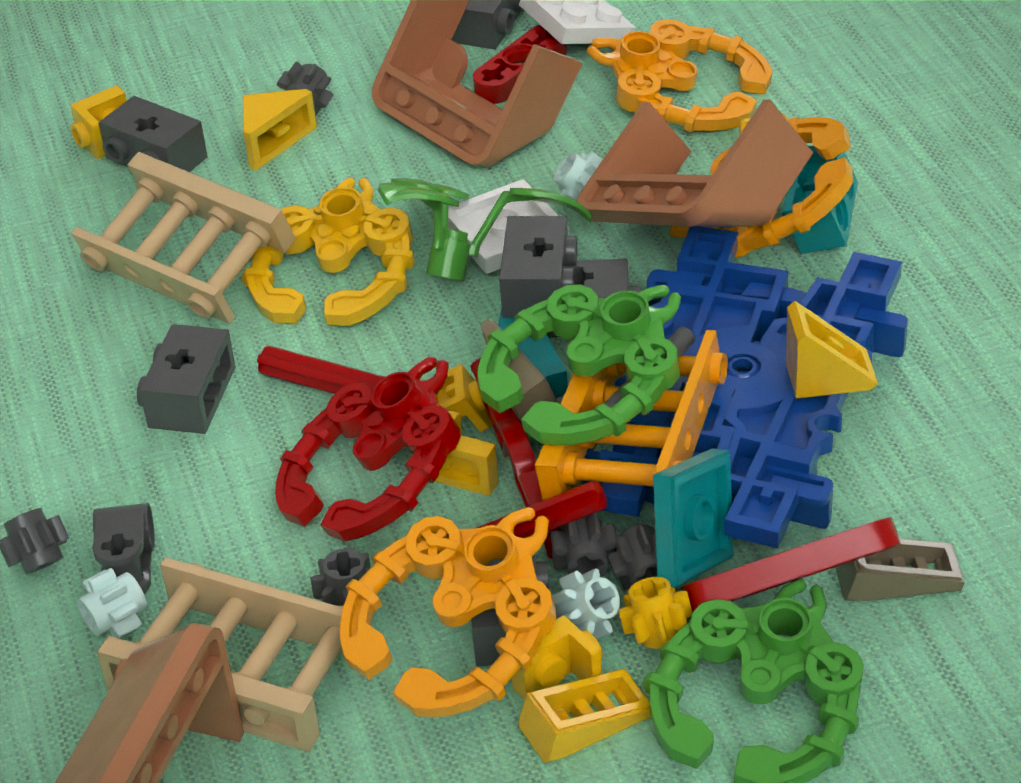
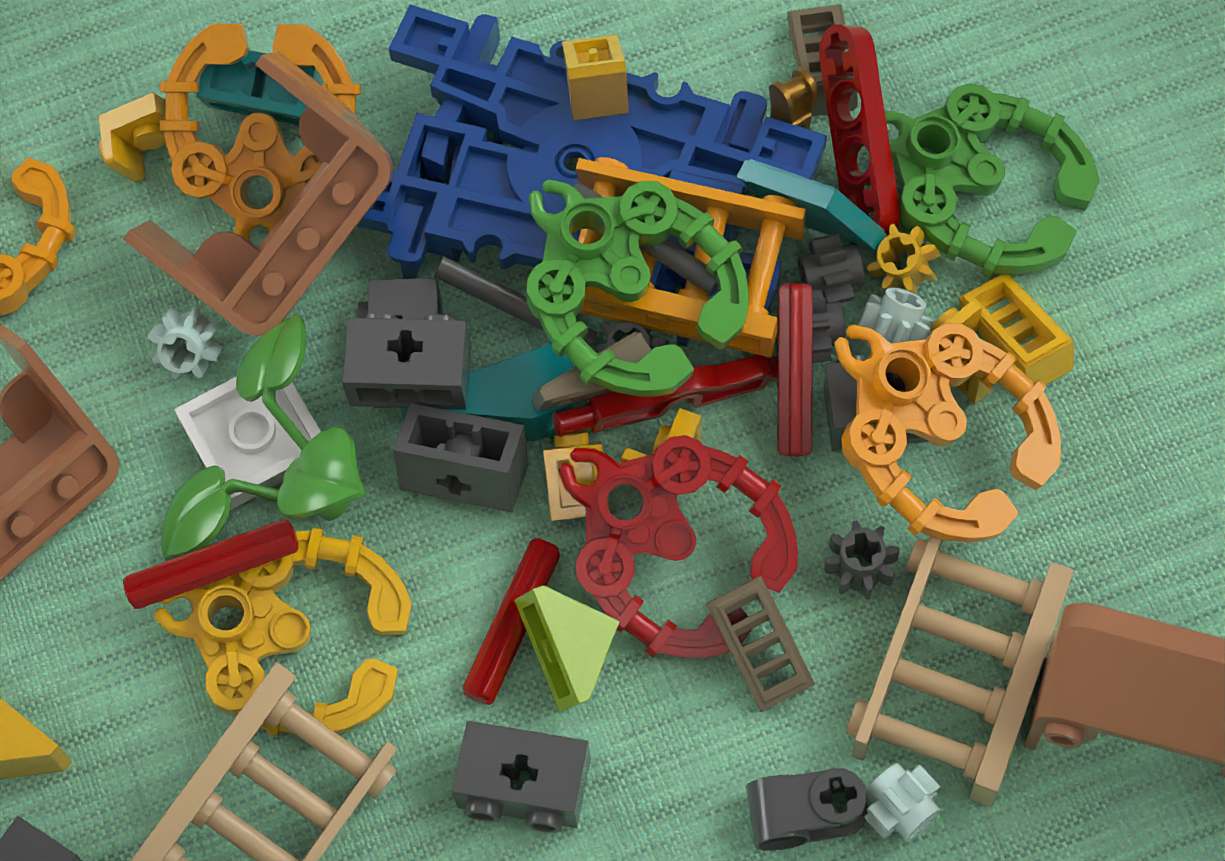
camera: 90 degrees left, 25 degrees up
(277, 509) = (737, 598): none -> dark tan slope
(291, 392) = (568, 642): none -> lime slope
(370, 175) = (211, 564): none -> red axle
(455, 325) = (461, 457): none -> dark grey brick
(813, 510) = (794, 99): none -> pearl gold bar

